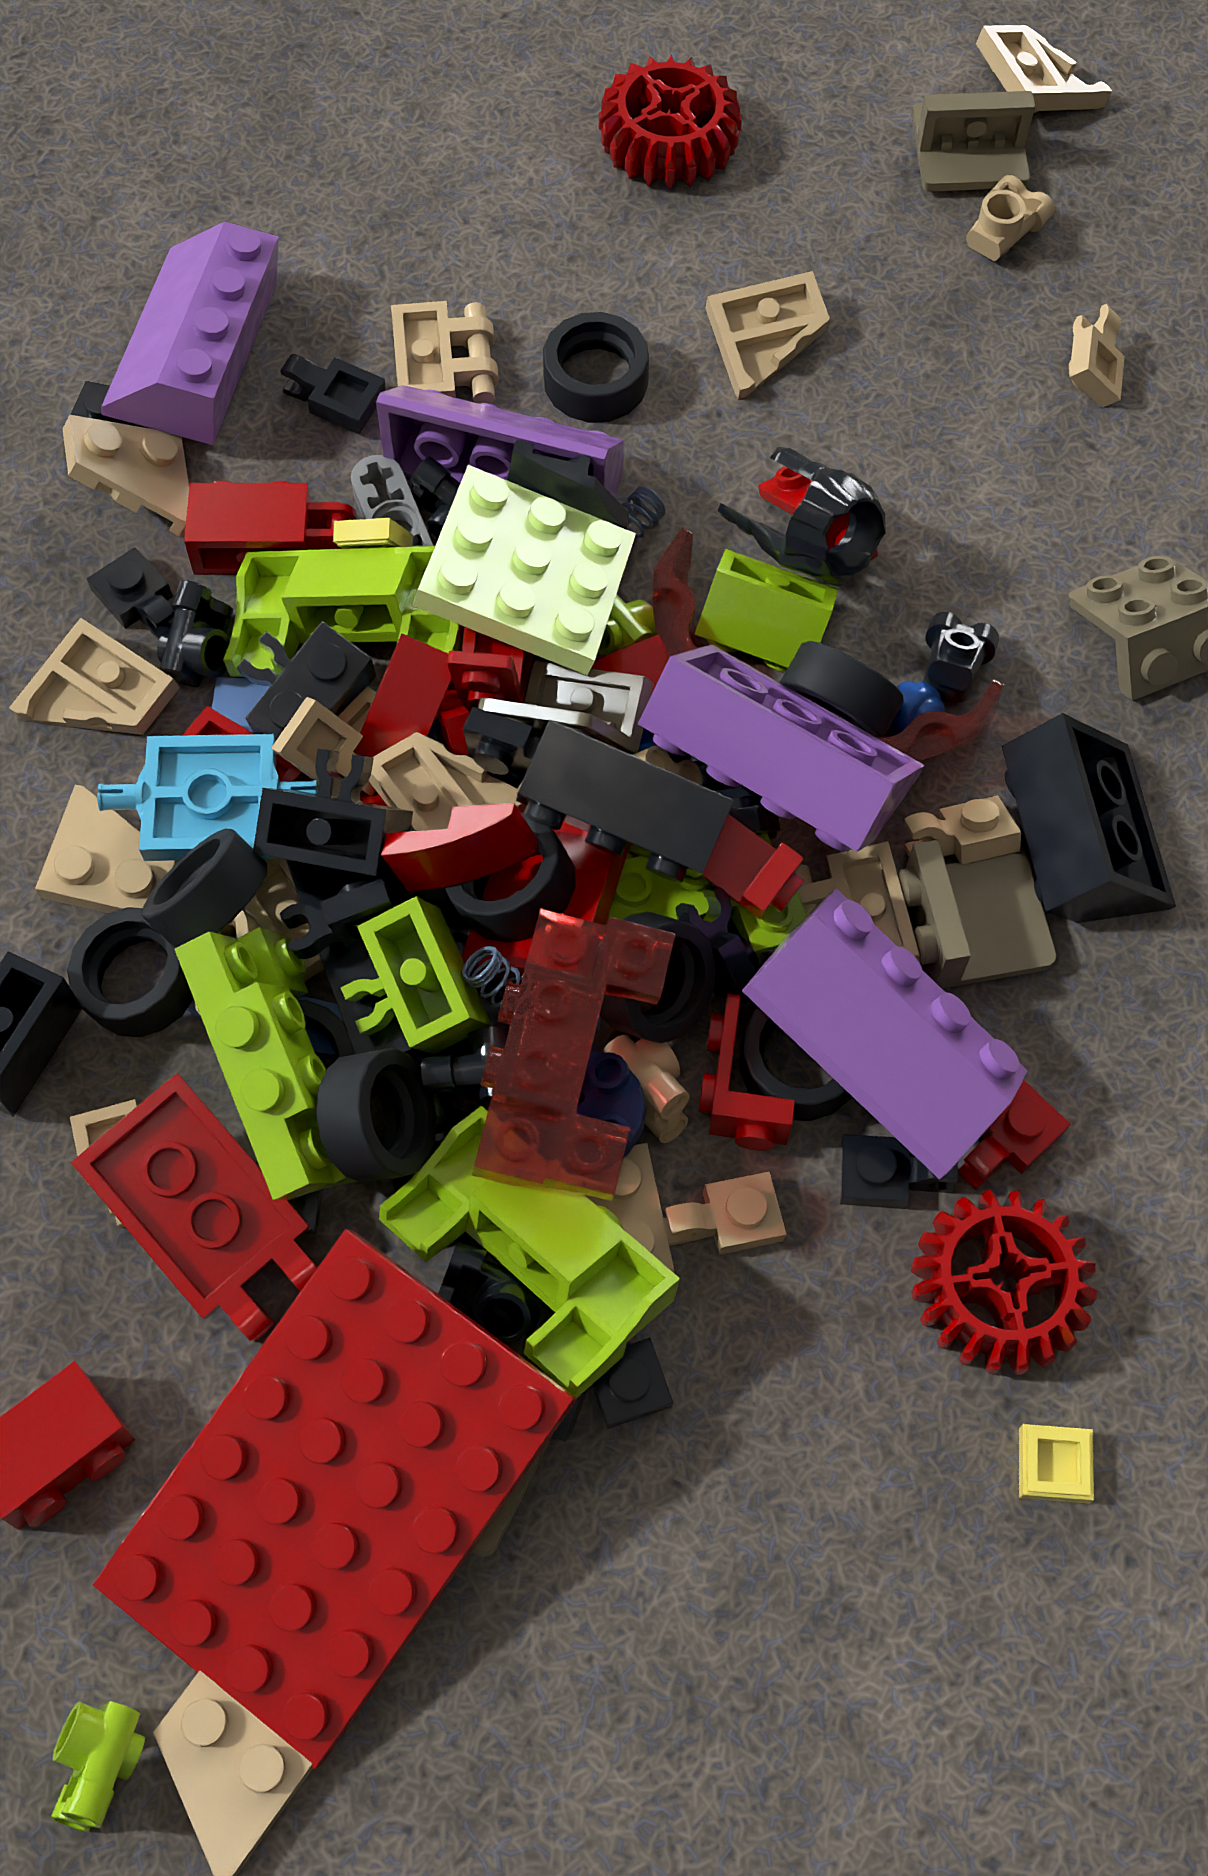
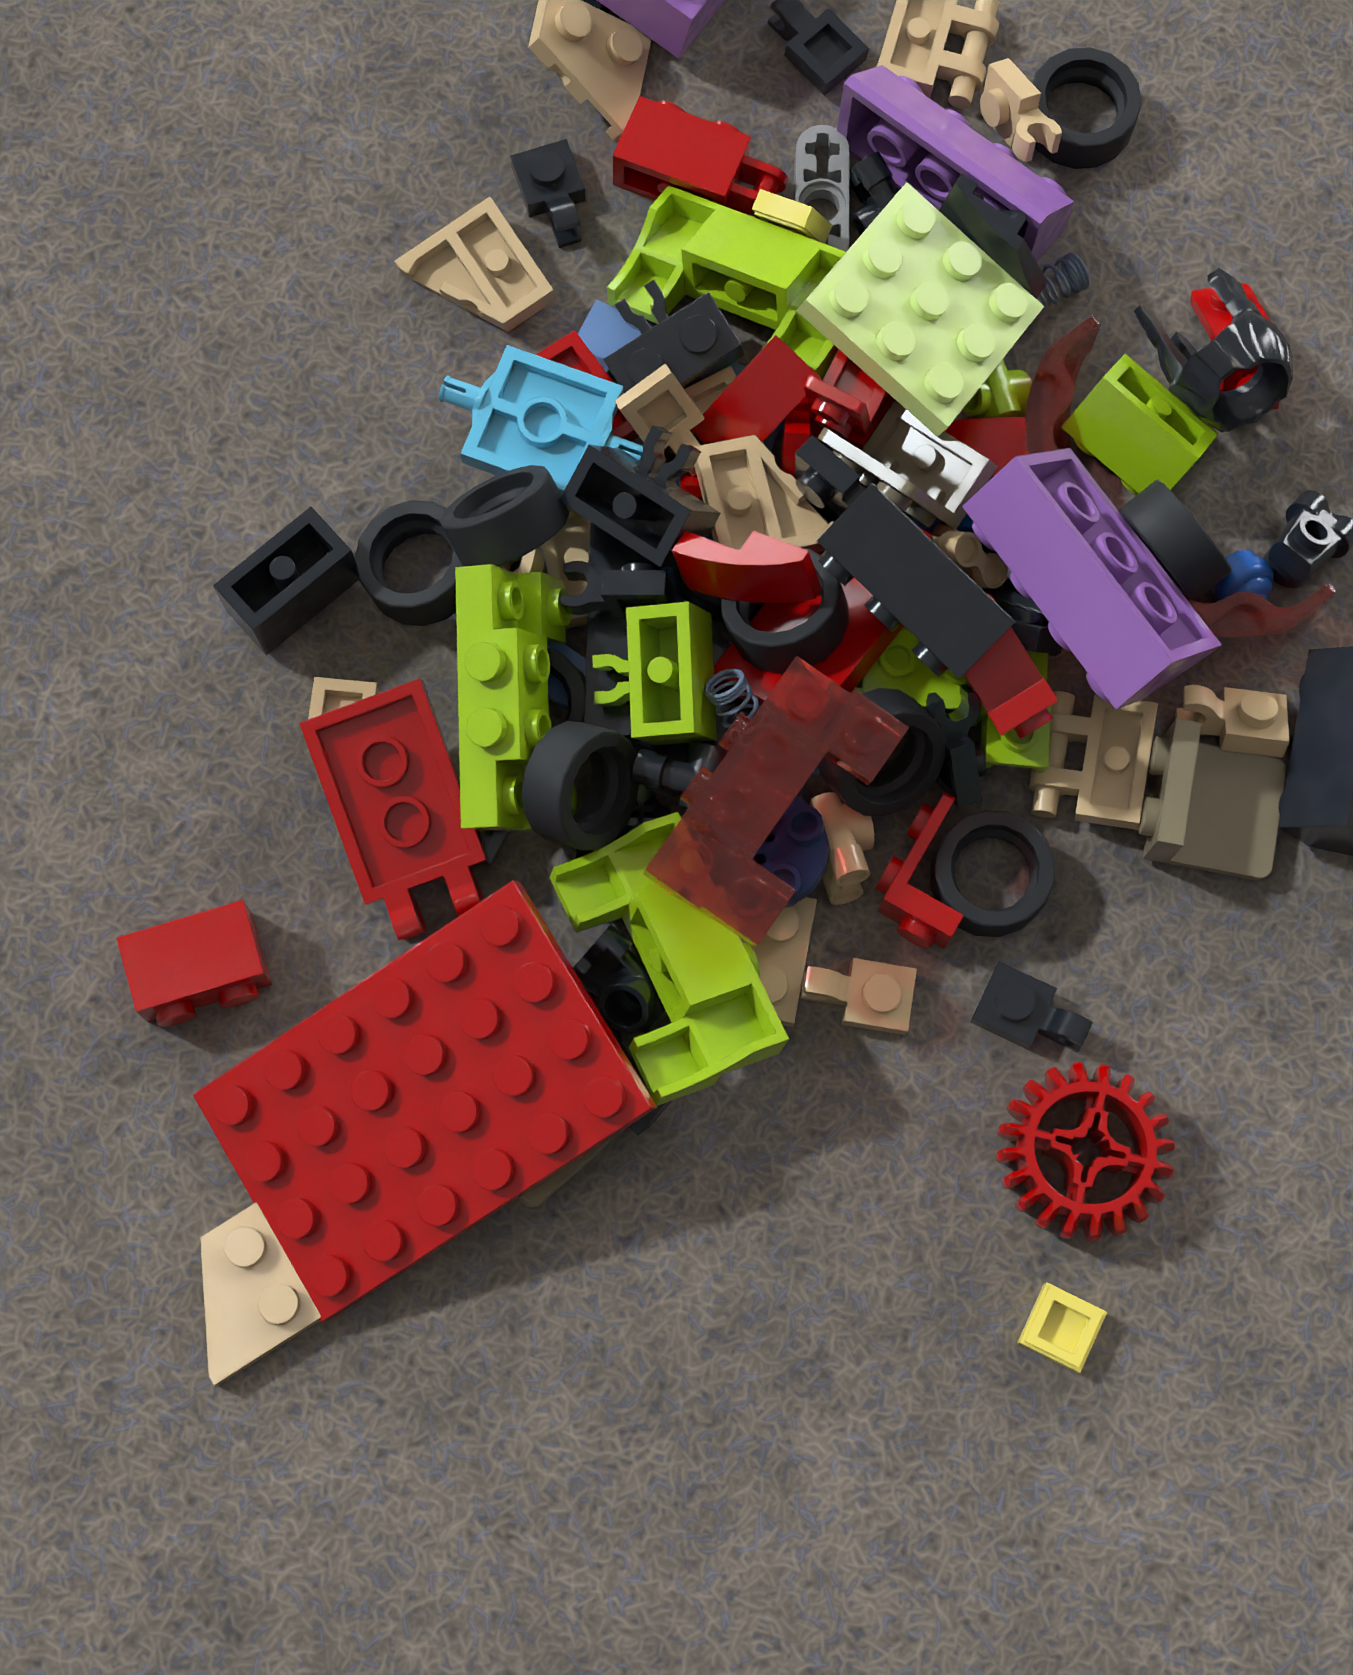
camera: 20 degrees right, 10 degrees up
(97, 860) = (423, 442): tan wing -> none
(99, 1749) = (151, 1234): lime plate -> none
(196, 637) = (587, 258): black plate -> none
(535, 386) = (1012, 110): none -> tan plate
(633, 1386) = (717, 1110): black plate -> none
(766, 327) = (1270, 125): tan wing -> none
(887, 1032) = (1071, 887): medium lavender slope -> none
(1016, 1136) = (1158, 1019): red plate -> none

